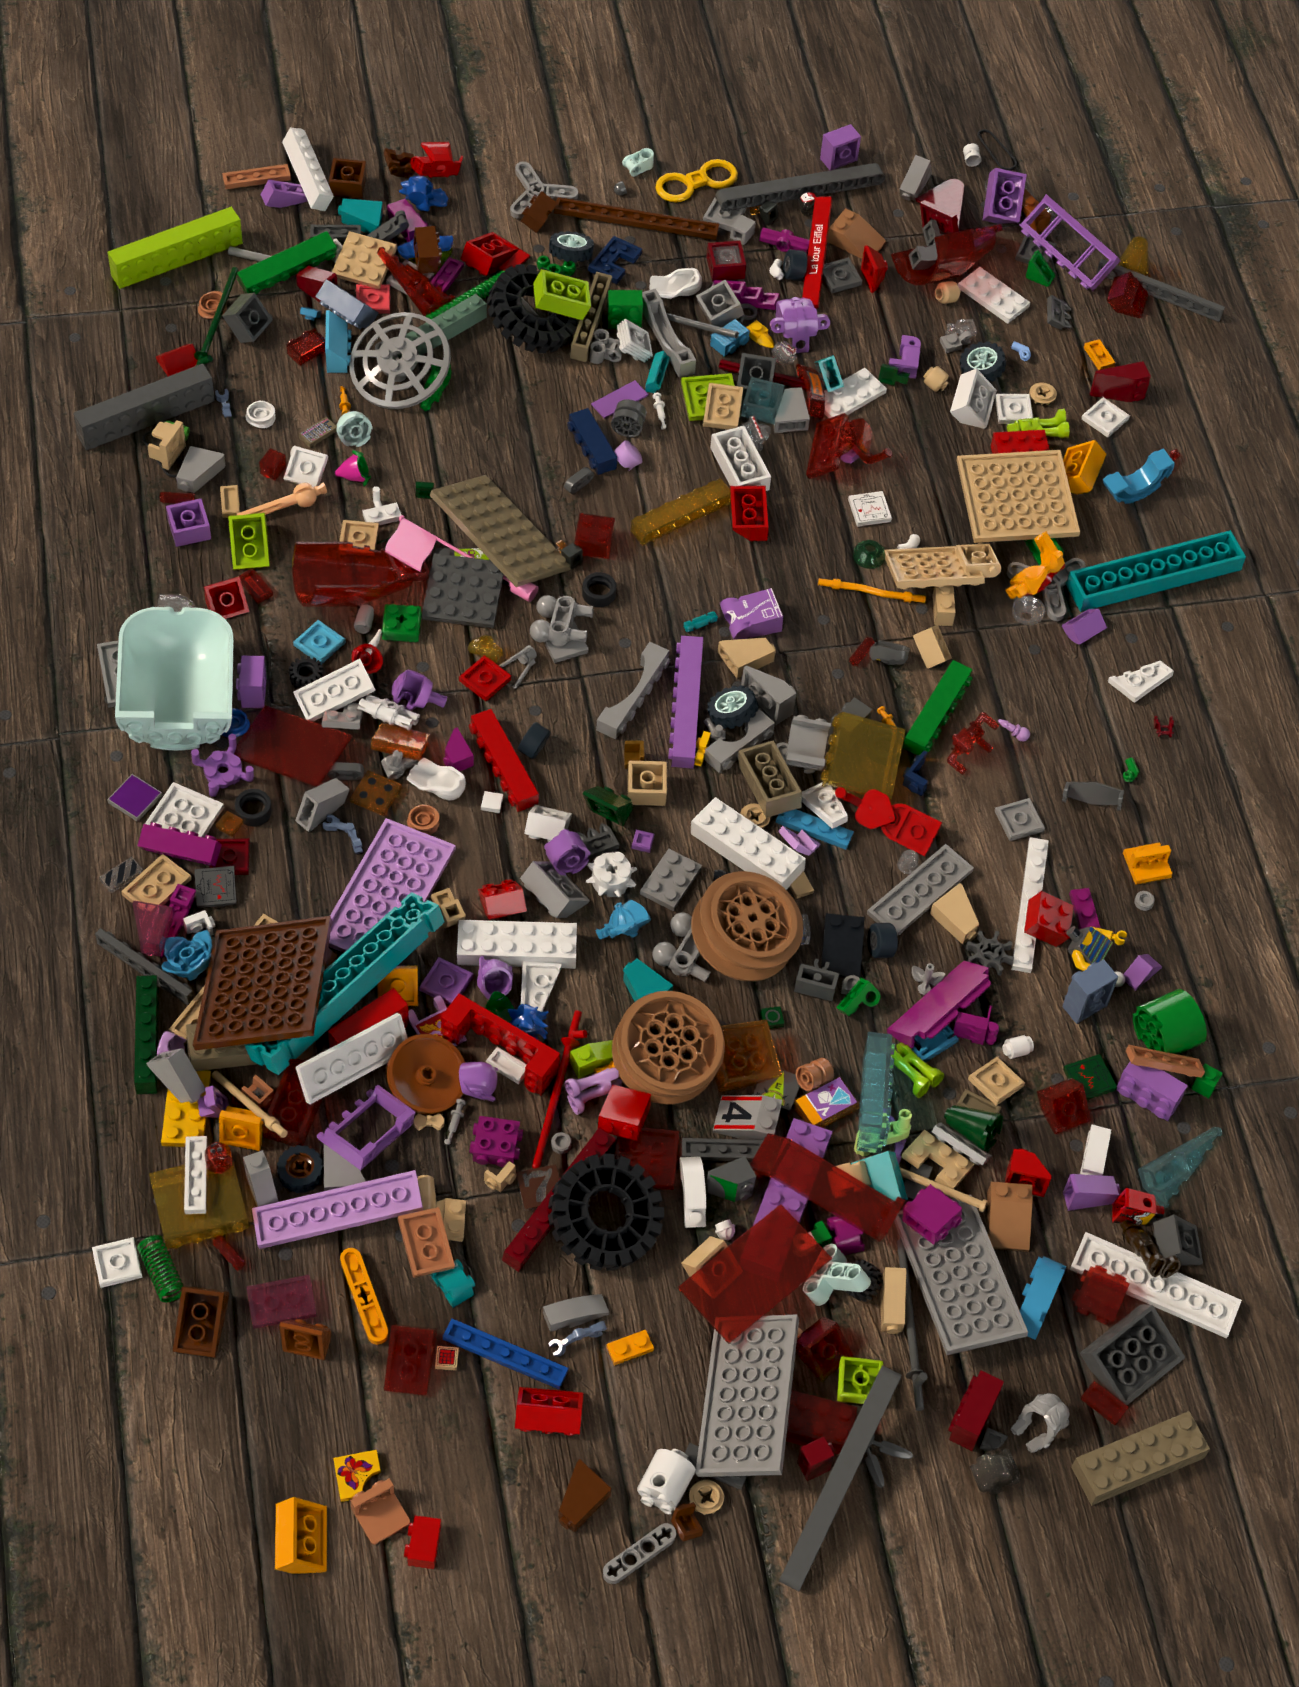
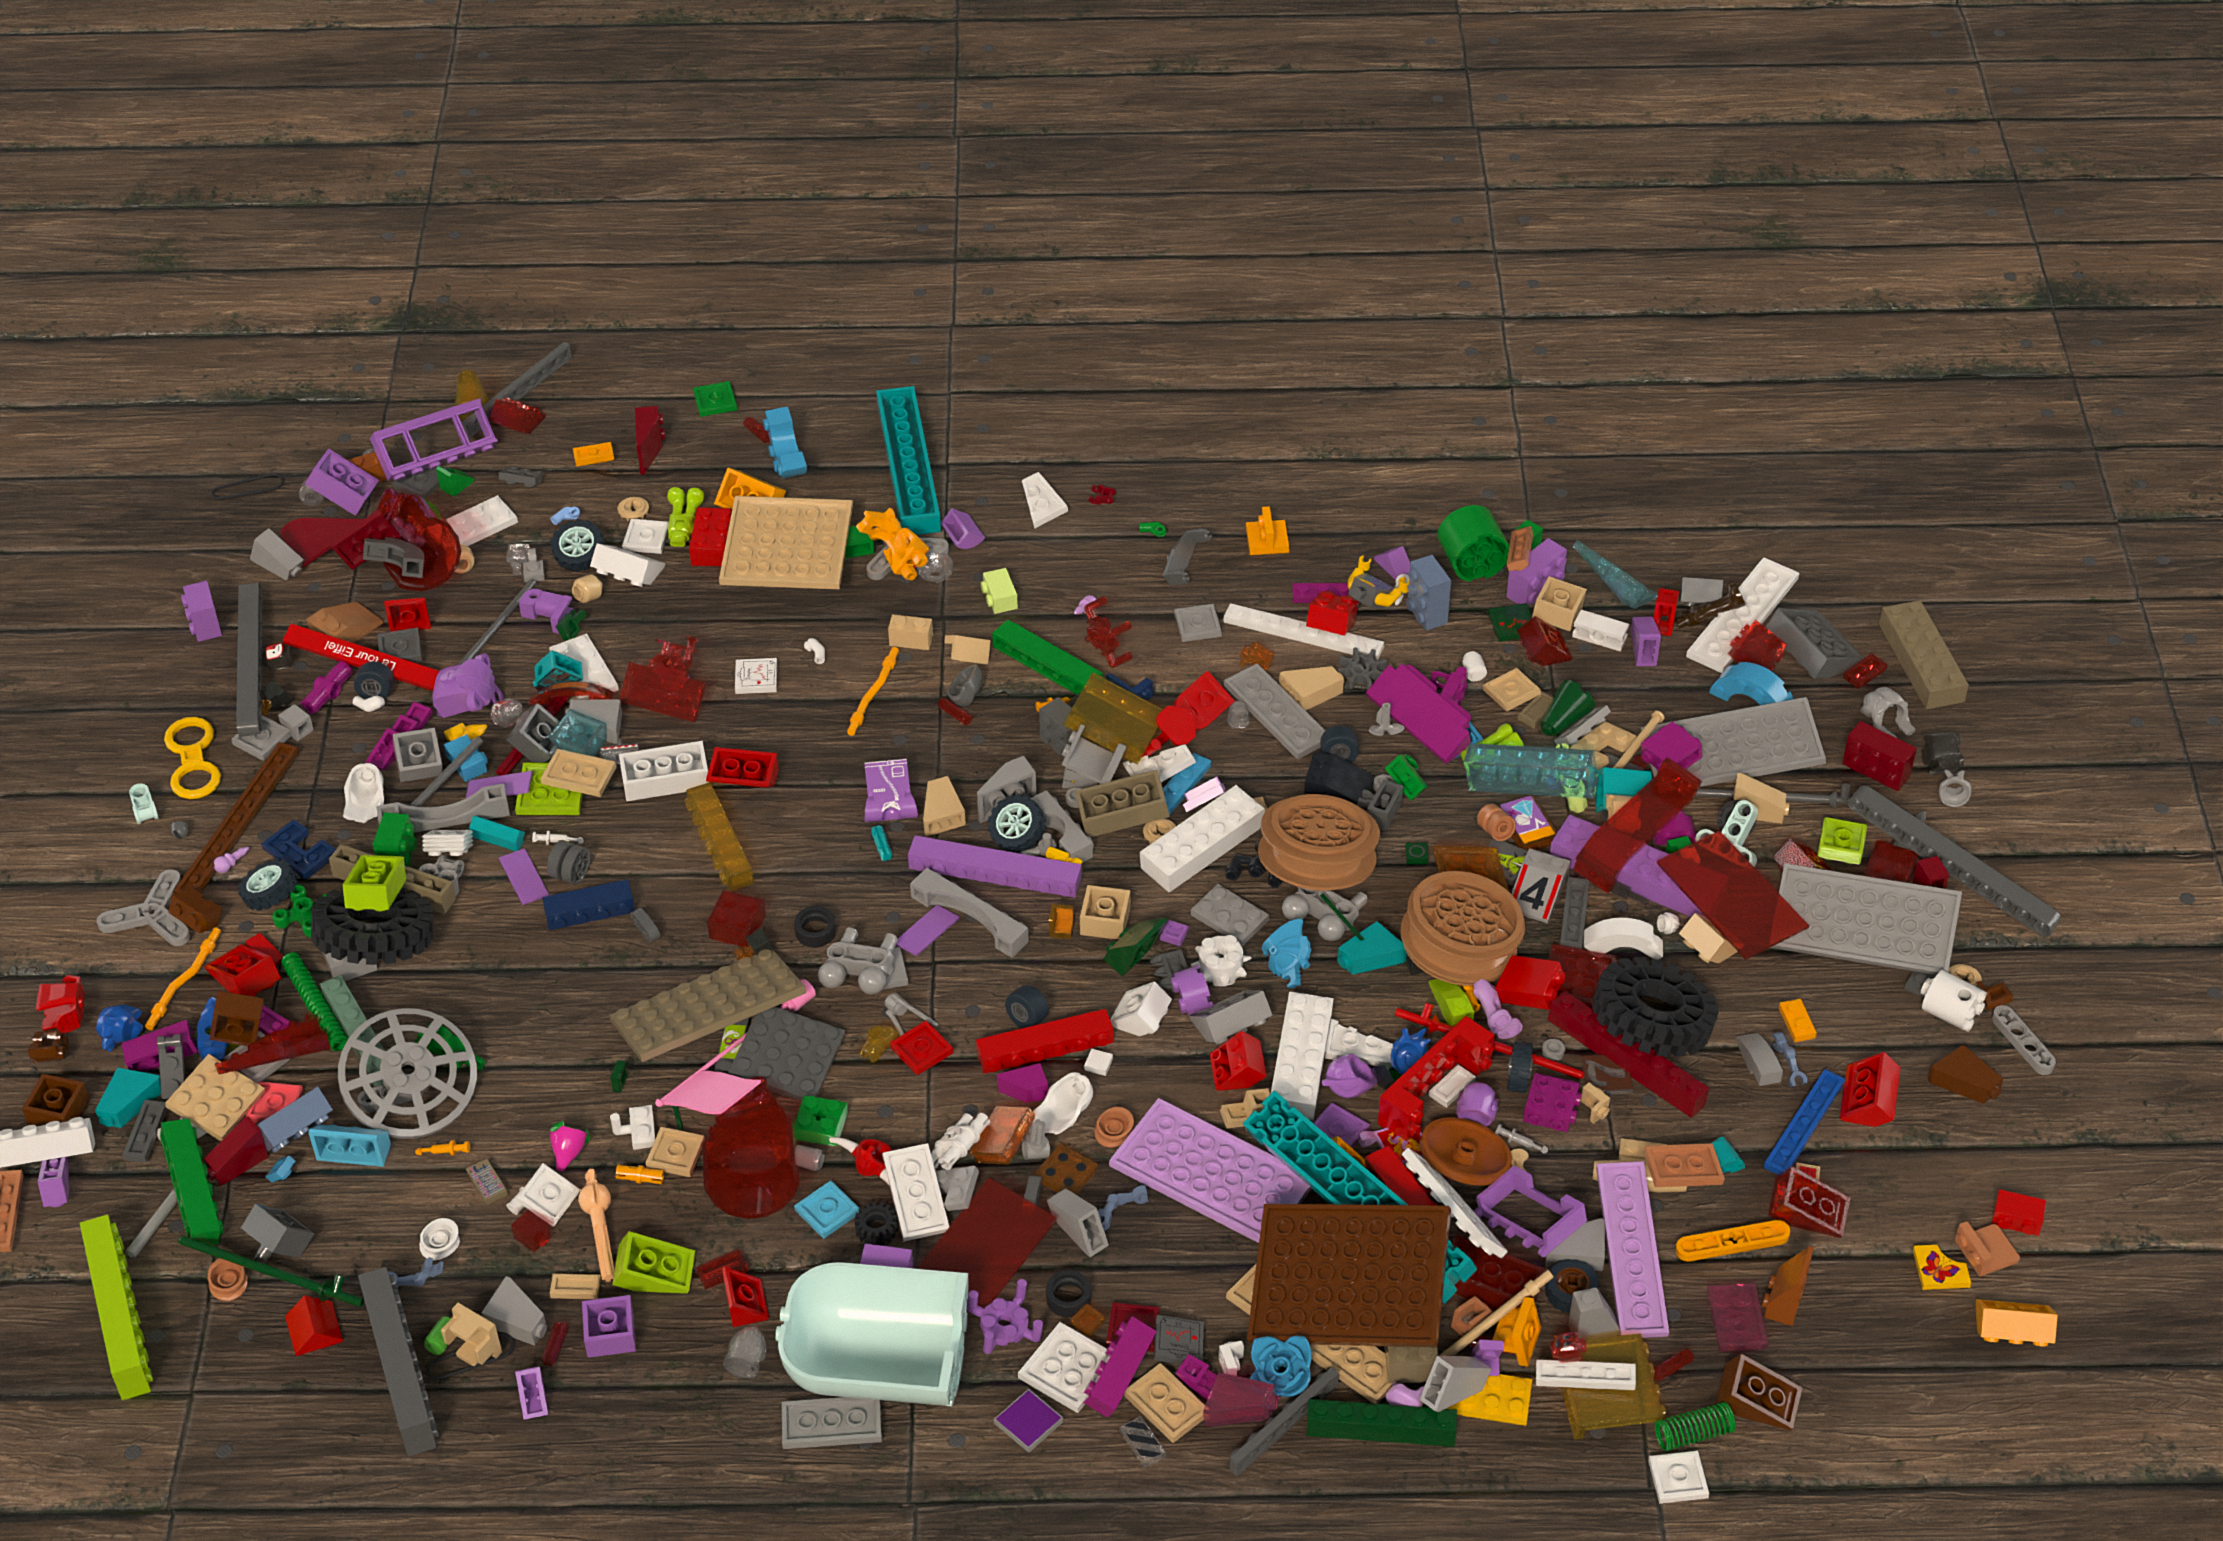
camera: 75 degrees left, 10 degrees down
(129, 491) = (531, 1392): none -> medium lavender slope
(306, 346) = (339, 1178): clear red brick -> none
(334, 520) = (640, 1174): none -> light orange pin
(354, 428) = (498, 1138): light aqua cylinder -> none
(416, 690) = (932, 1112): medium lavender piece -> none
(510, 229) = (160, 1009): none -> light orange bar
(523, 1107) = (1519, 1067): none -> black wheel
(592, 220) = (223, 863): none -> lavender bar
(611, 665) = (926, 930): none -> medium lavender piece
(628, 455) = (621, 871): lavender hair -> none
(673, 954) = (1342, 917): none -> dark green piece
(706, 366) = (514, 783): none -> medium lavender piece
(726, 260) = (345, 741): dark red piece -> none
(732, 1180) = (1618, 896): dark grey slope -> none
(864, 326) = (497, 623): none -> dark grey piece
(866, 558) = (822, 690): clear green piece -> none
(942, 565) = (864, 619): tan plate -> none
(952, 1491) = (1954, 796): none -> light grey piece
(972, 155) = (253, 505): white wheel -> none
(984, 868) = (1256, 654): none -> clear orange bracket
(1009, 1215) = (1663, 696): medium nougat slope -> none
(1014, 662) = (999, 591): none -> yellowish green brick
(1027, 1169) = (1623, 679): red slope -> none
(1105, 417) = (680, 466): white tile -> none
(1117, 1110) = (1559, 603): none -> tan brick
(1144, 900) = (1311, 547): light grey tile -> none
(1198, 426) = (714, 399): none -> green tile

